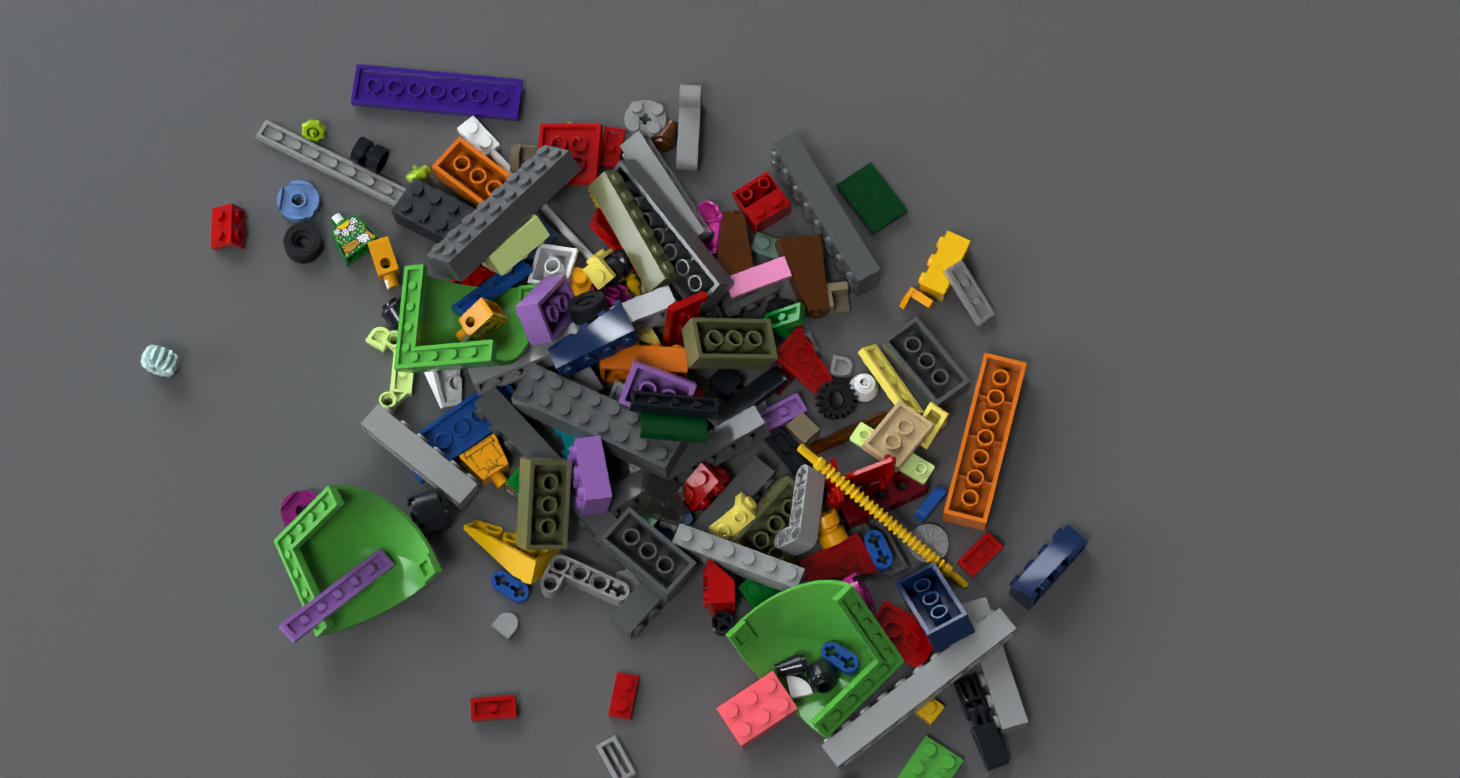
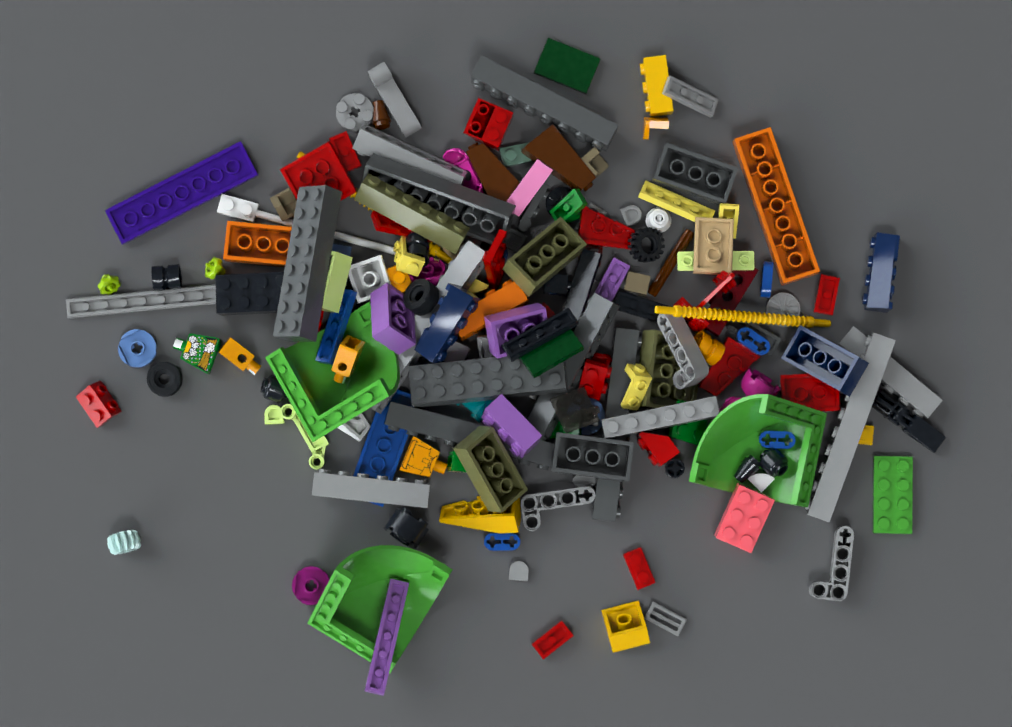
camera: 30 degrees left, 15 degrees up
(572, 741) = (625, 626): none -> yellow slope

